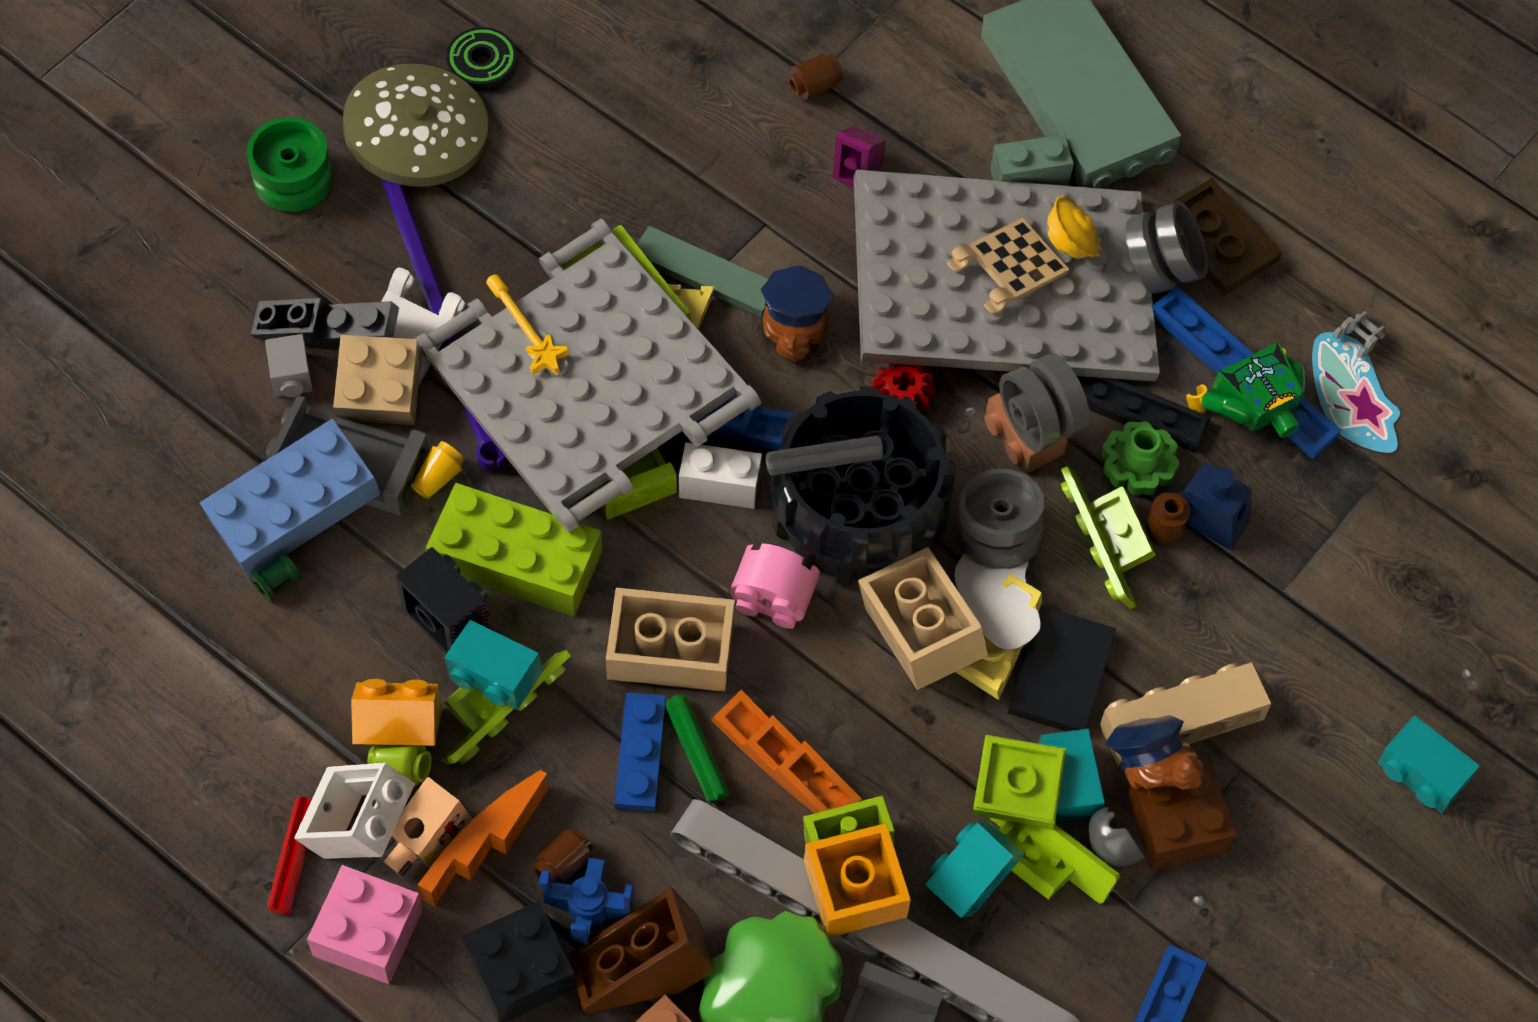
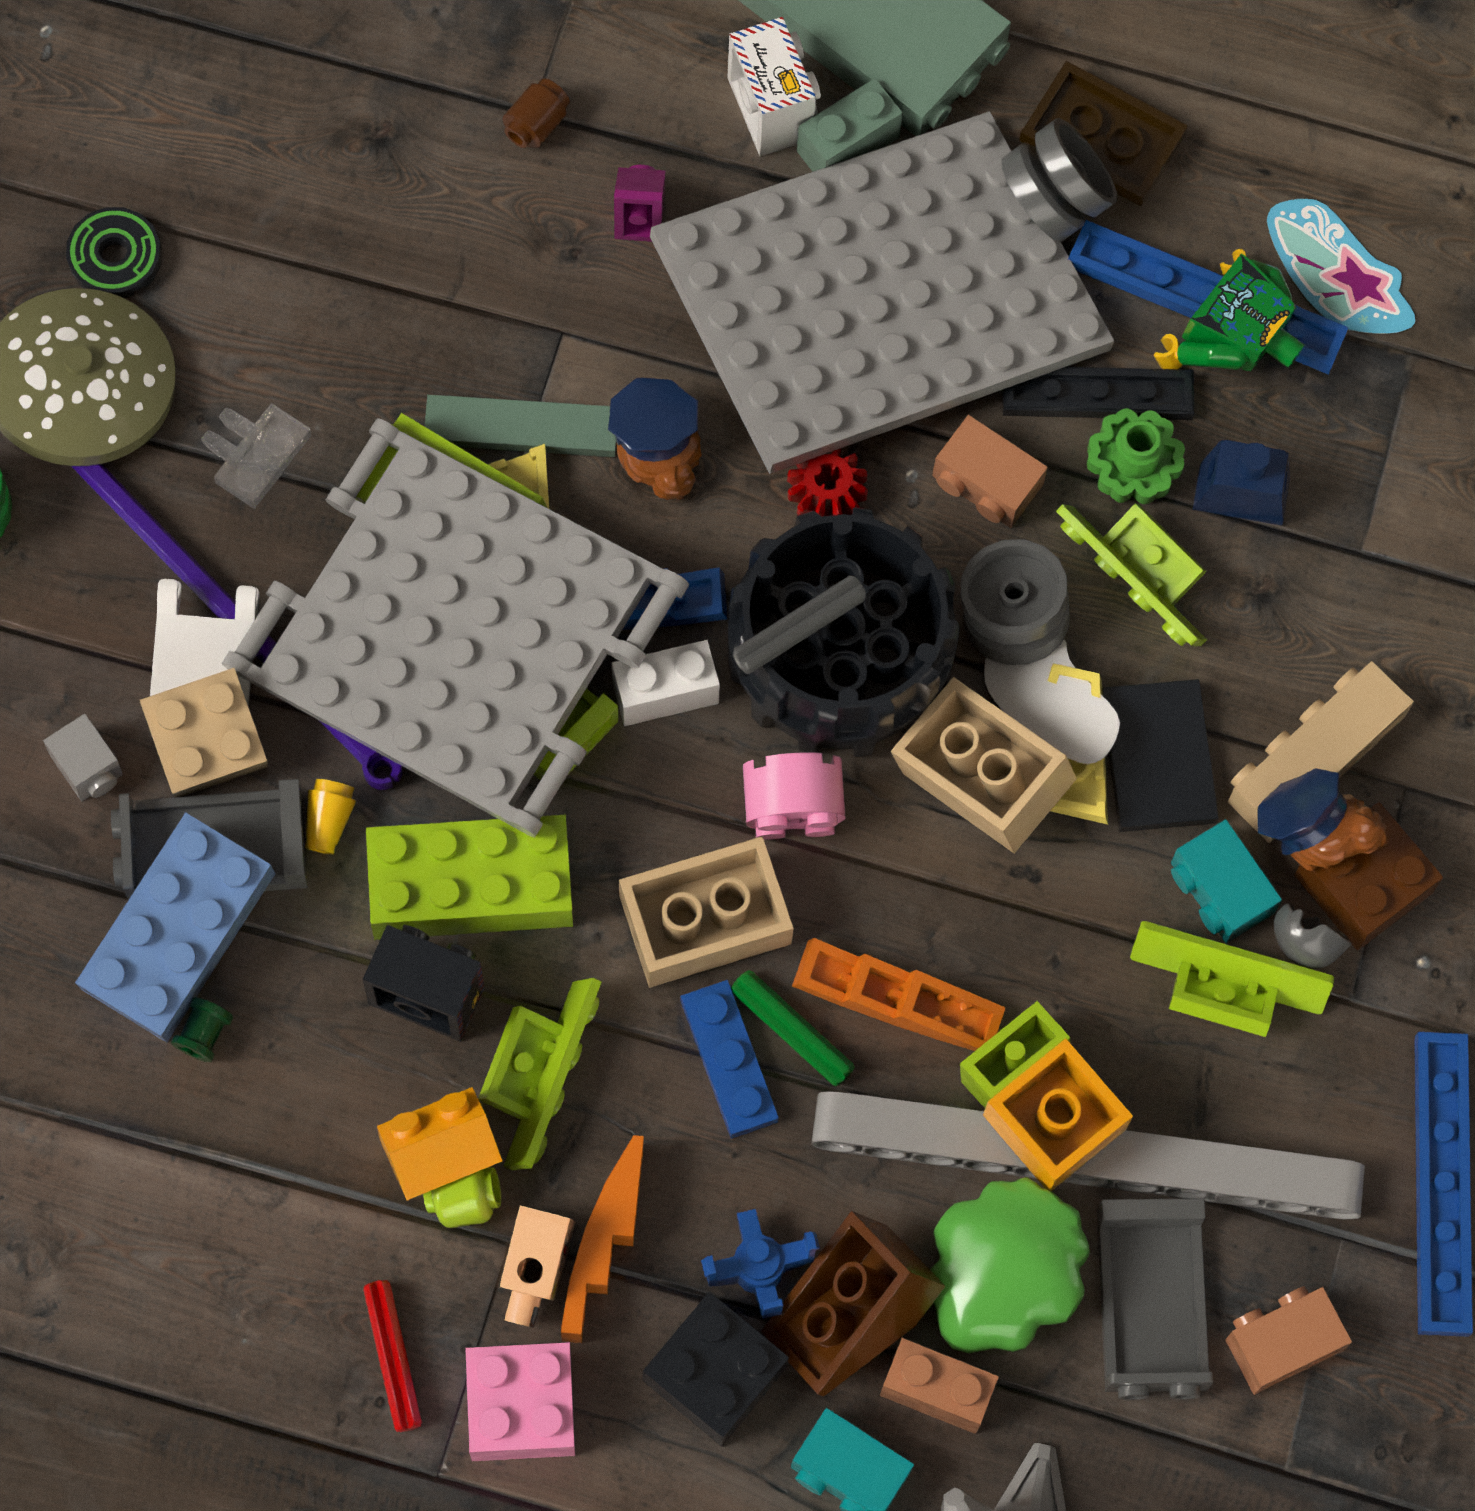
camera: 25 degrees left, 10 degrees up
(323, 322) = (101, 685): black slope -> none
(342, 790) = (413, 1258): white window -> none
(493, 665) = (523, 1036): teal brick -> none
(514, 220) = (260, 456): none -> clear hinge
(543, 353) = (395, 622): yellow piece -> none
(564, 857) = (705, 1225): reddish brown brick -> none
(973, 868) = (1172, 1040): teal brick -> none
(989, 111) = (771, 84): none -> white brick
(1014, 260) = (892, 270): tan flag -> none
(1019, 781) = (1179, 916): lime tile -> none
(1044, 402) = (1013, 444): dark grey wheel -> none
(1073, 230) = (944, 204): yellow piece -> none
(1168, 518) = (1202, 520): reddish brown brick -> none
(1352, 325) = (1333, 196): light grey piece -> none

